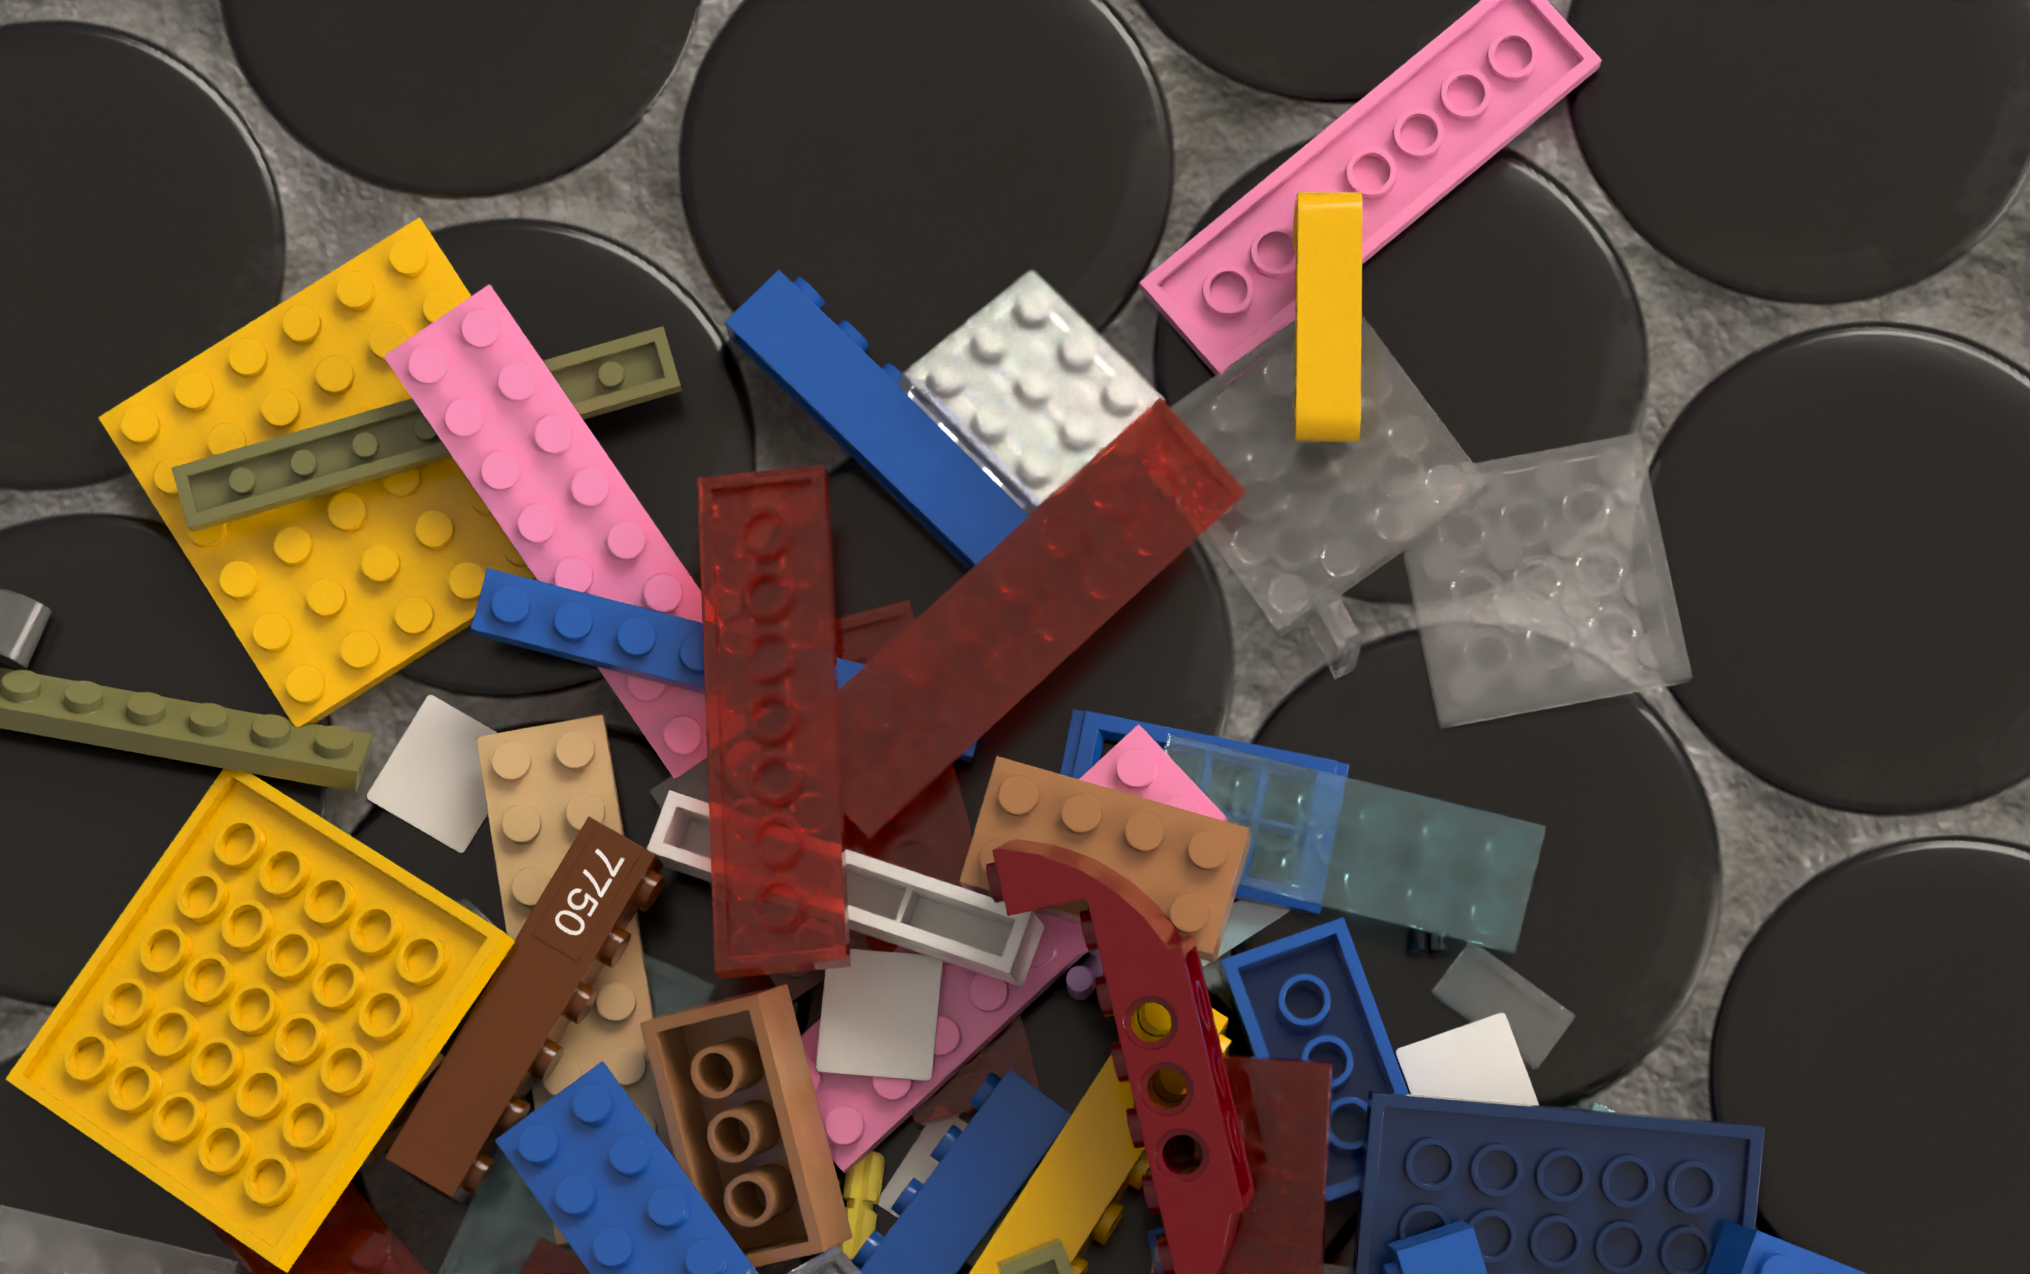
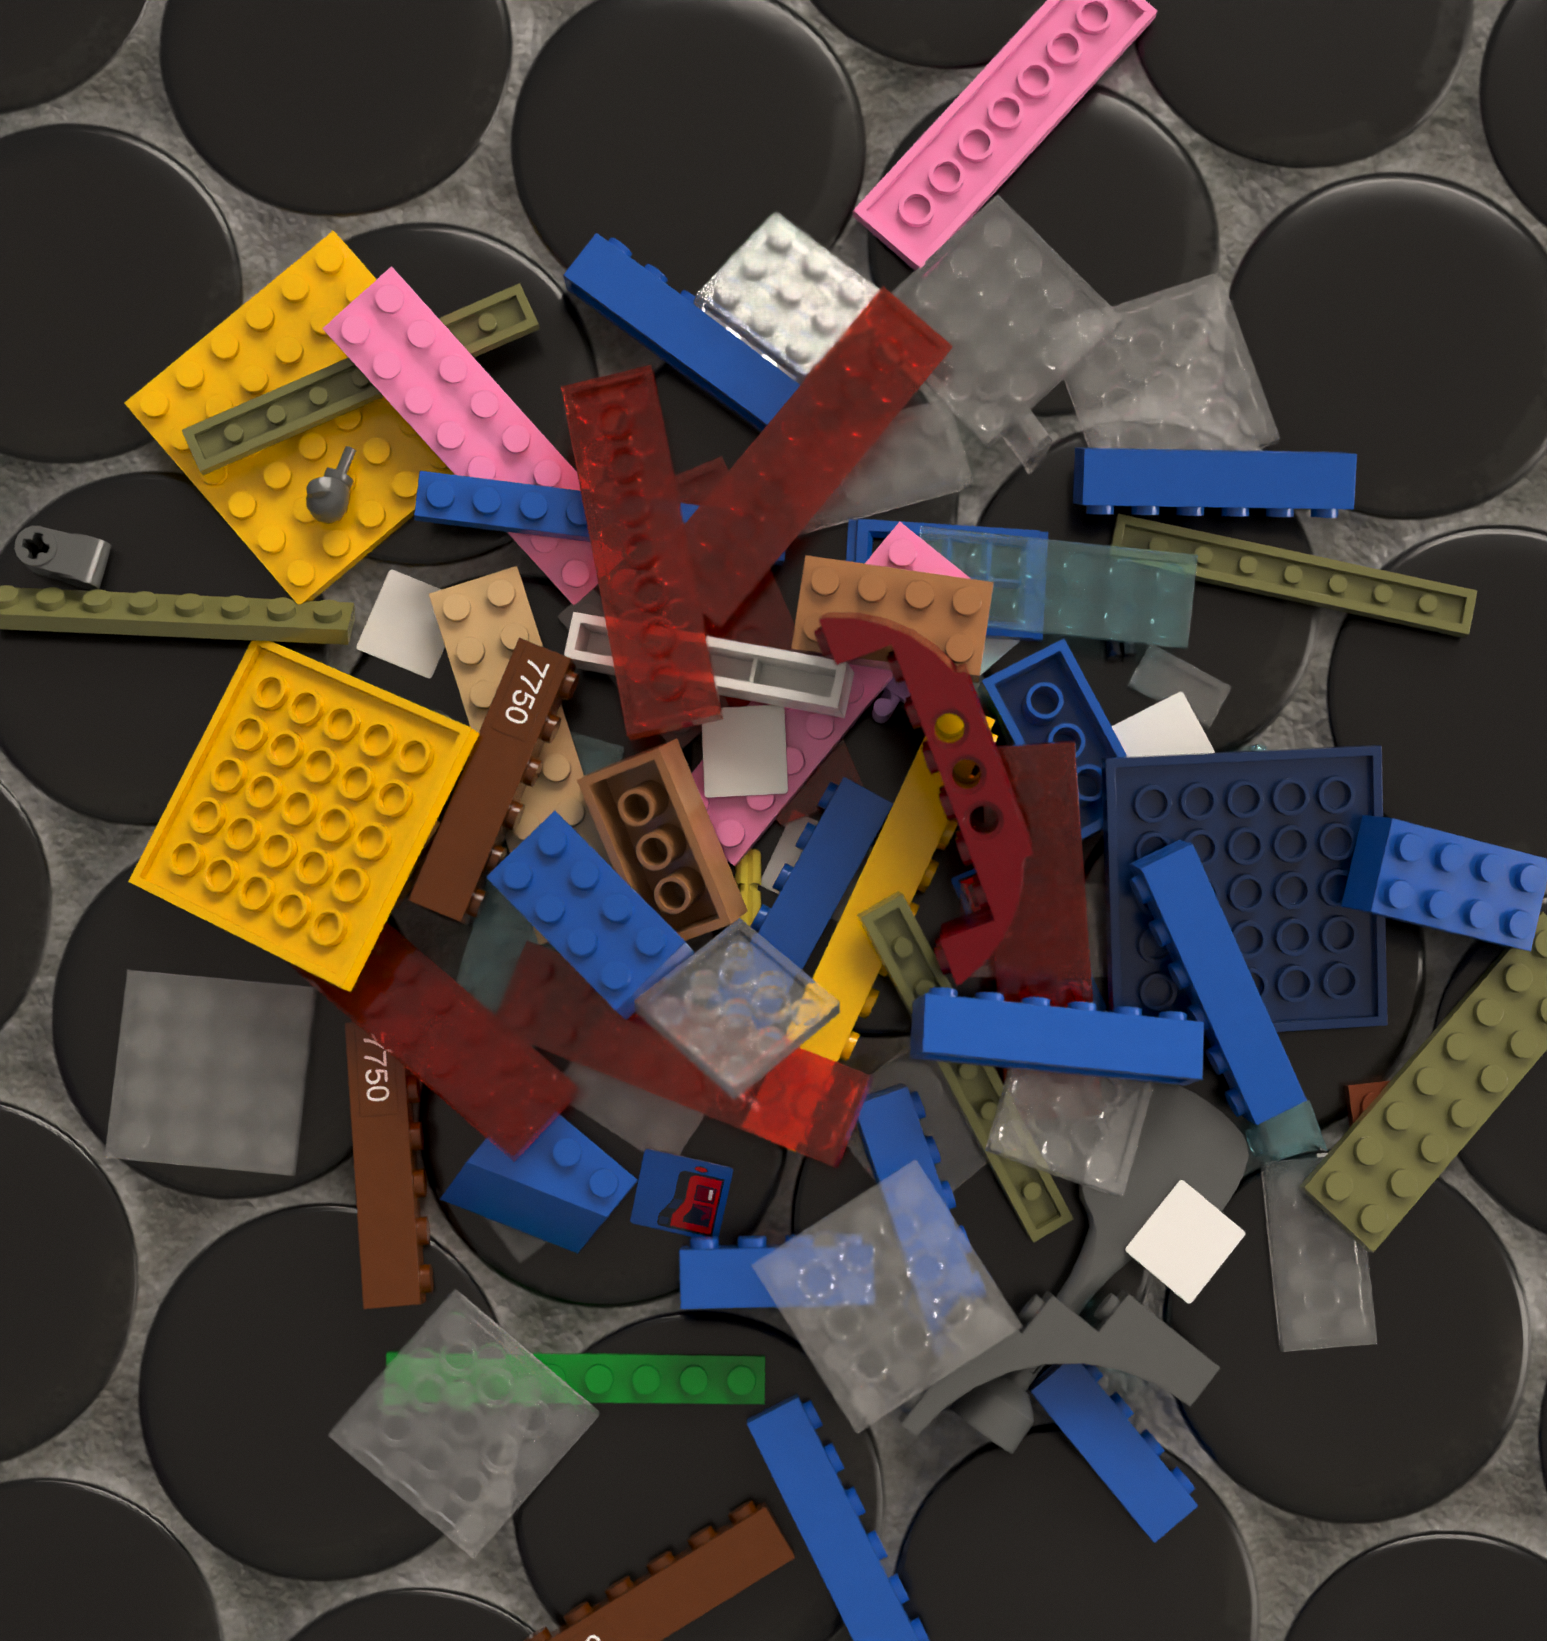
camera: 15 degrees left, 5 degrees up
(360, 583) = (330, 495): none -> dark grey piece
(1167, 642) = (908, 463): none -> clear plate
(1327, 316) = (994, 211): yellow beam -> none
(1587, 723) = (1214, 479): none -> blue brick
(1700, 876) = (1307, 577): none -> olive plate

